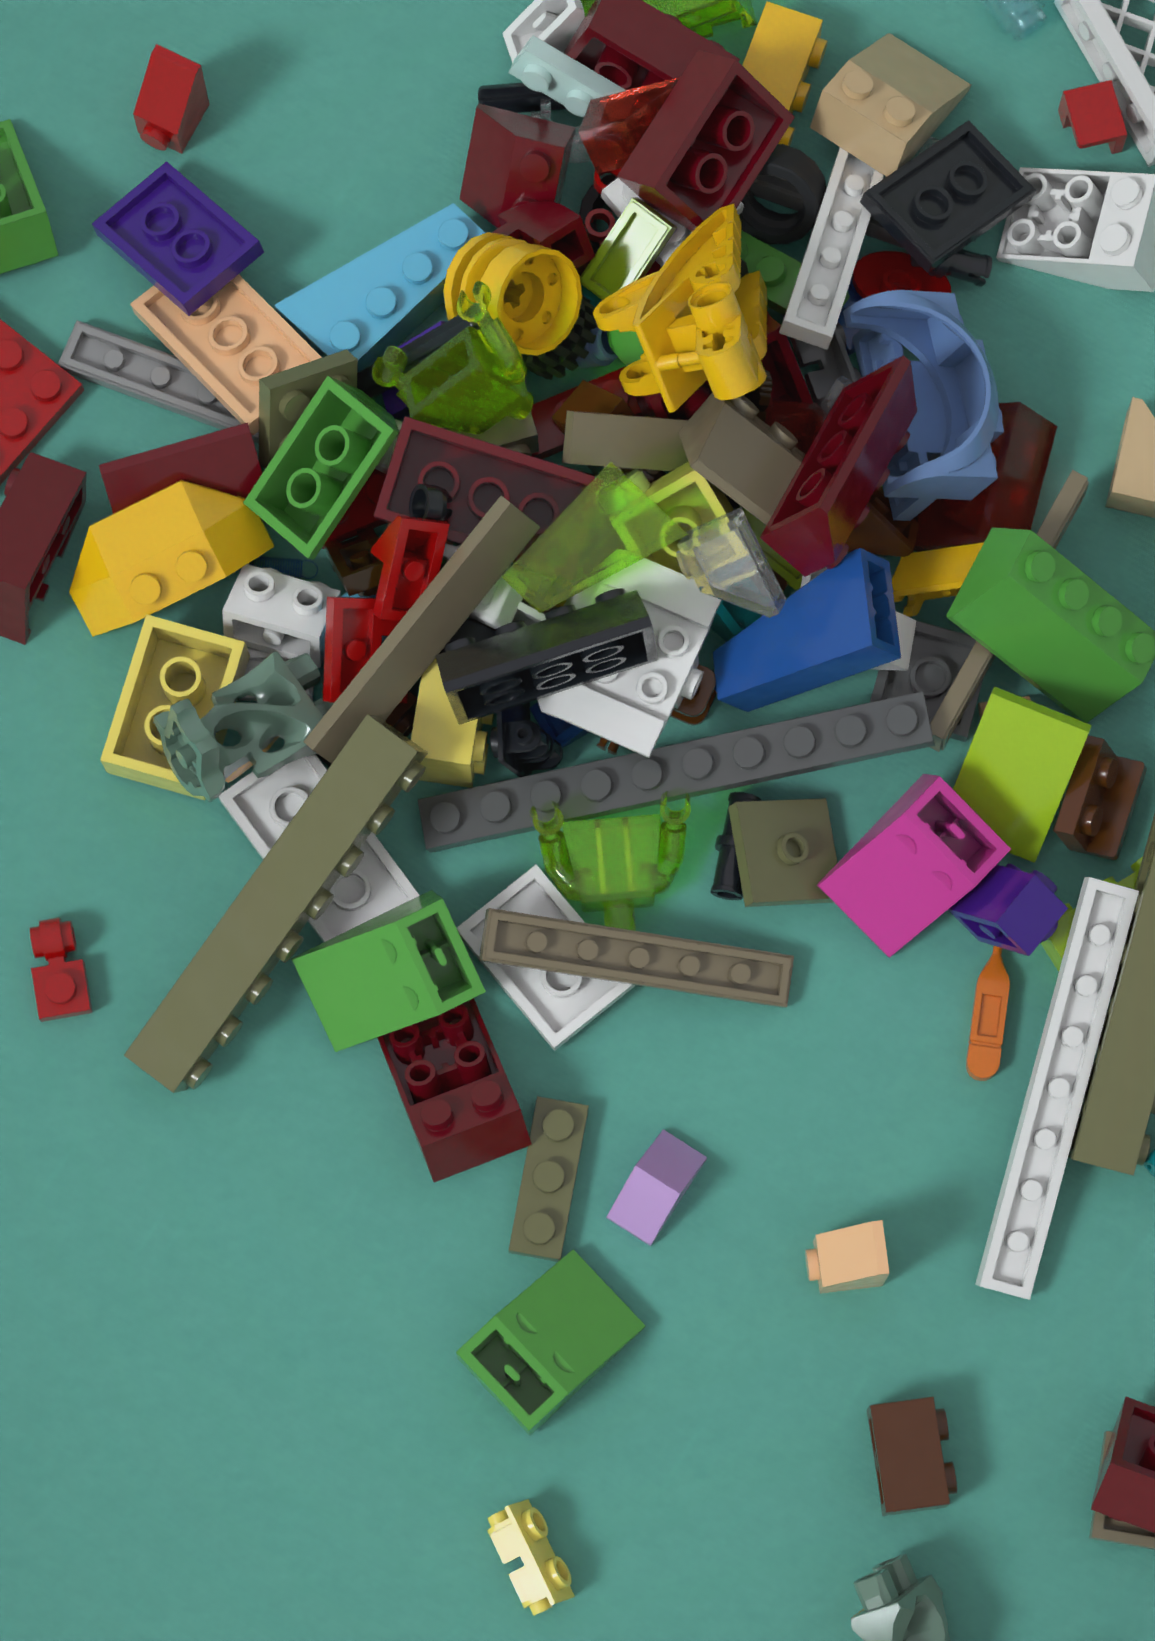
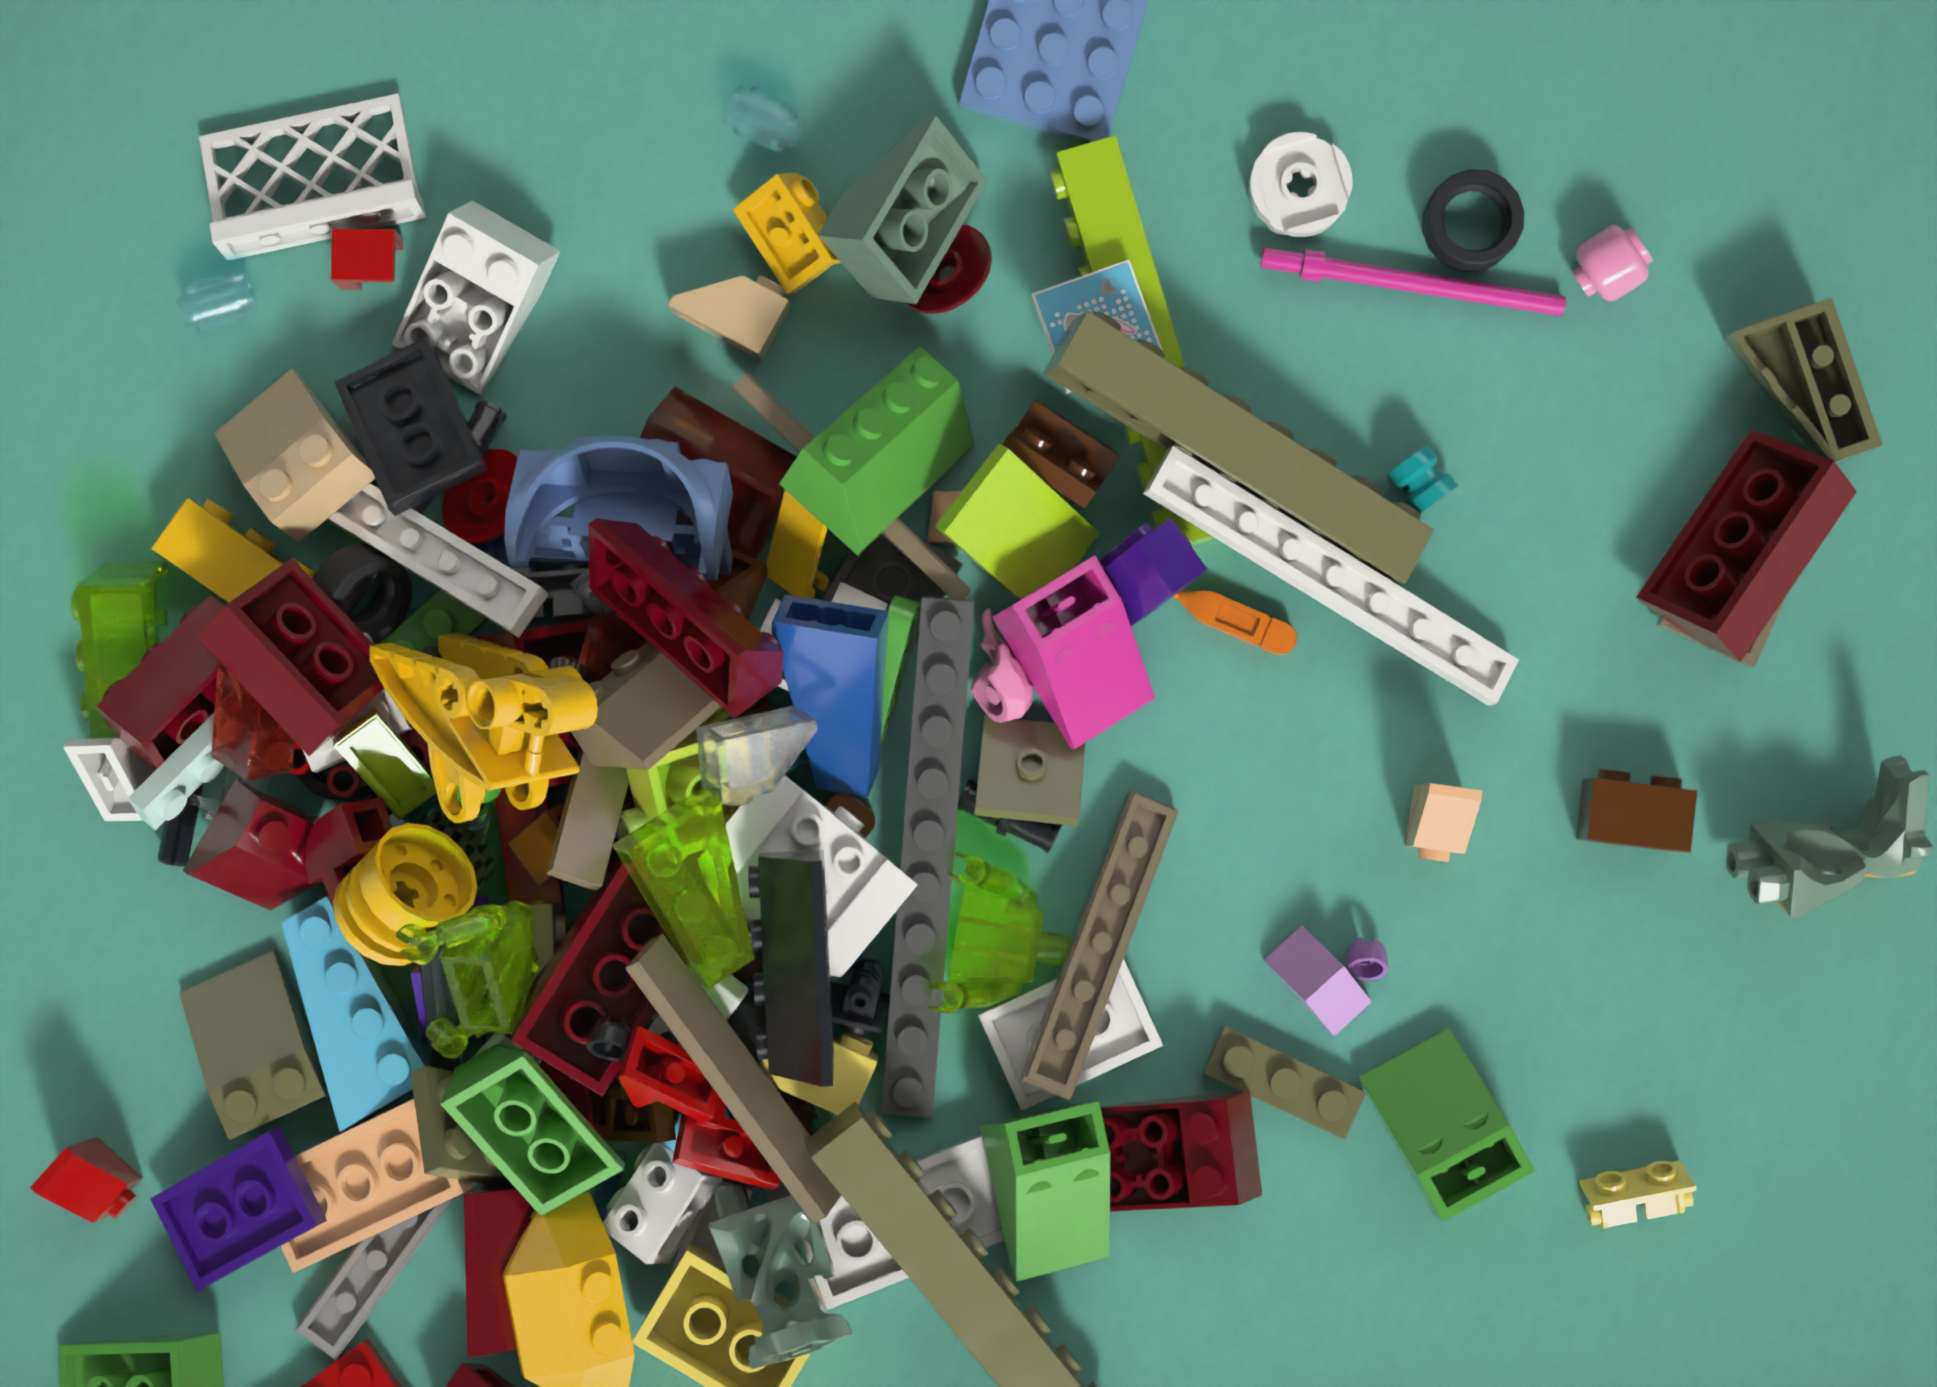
camera: 80 degrees left, 10 degrees up
(329, 214) = (253, 1044): none -> olive slope
(680, 1223) = (1367, 959): none -> medium lavender hinge
(851, 691) = (901, 631): none -> bright green beam
(860, 804) = (1002, 687): none -> bright pink piece

